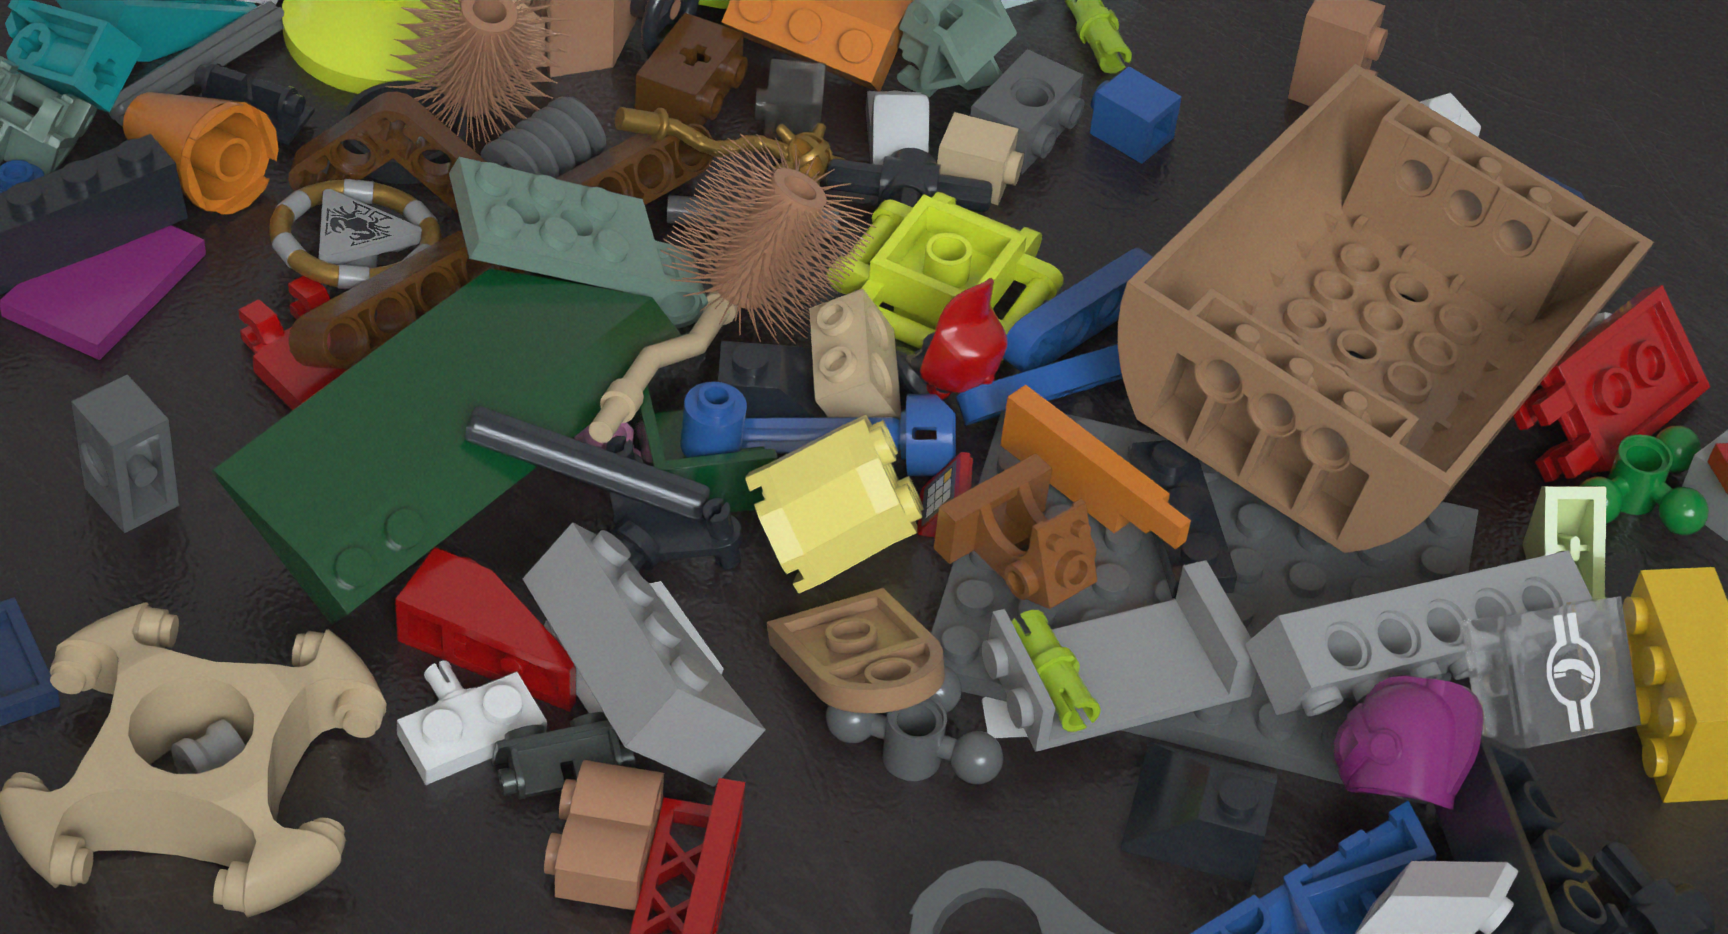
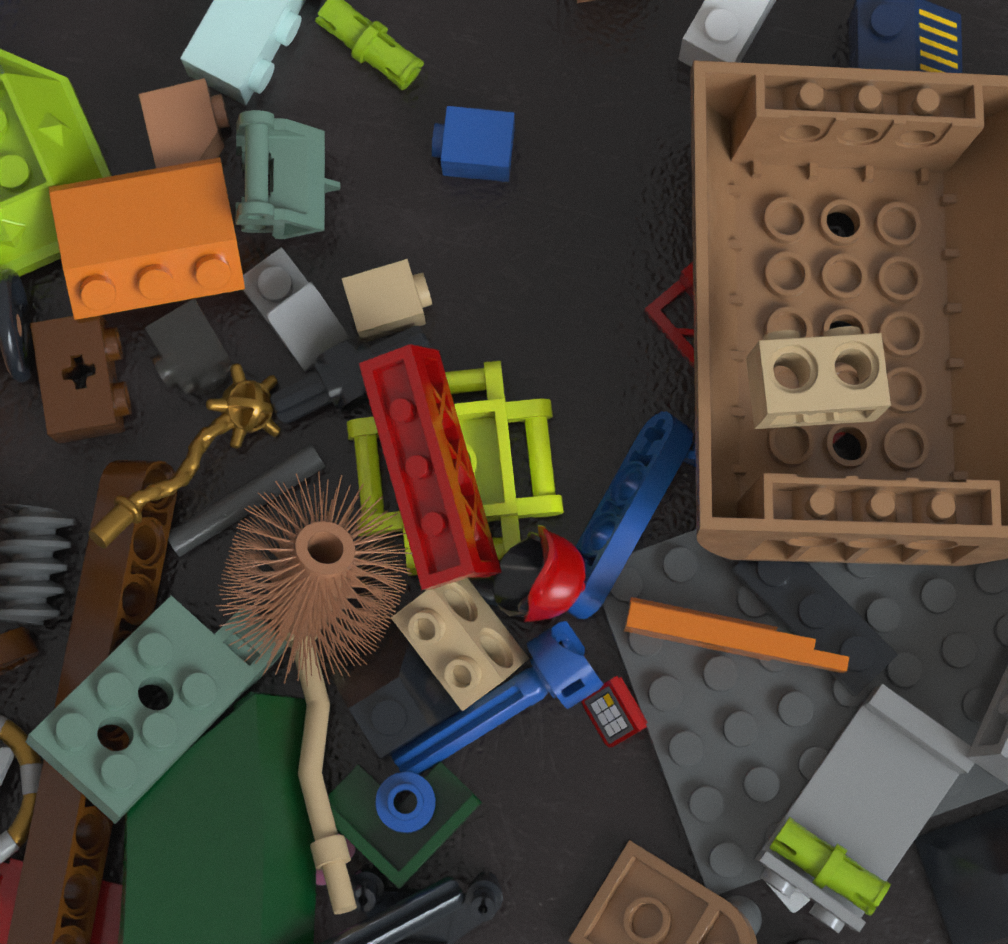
camera: 25 degrees left, 35 degrees up
(835, 502) = (549, 808): light yellow brick -> none
(929, 218) = (429, 466): none -> red fence
(1008, 515) = (766, 754): dark orange tile -> none
(1036, 99) = (379, 176): dark grey brick -> none
(1072, 315) = (590, 428): blue beam -> none
(1304, 249) = (821, 393): none -> tan brick

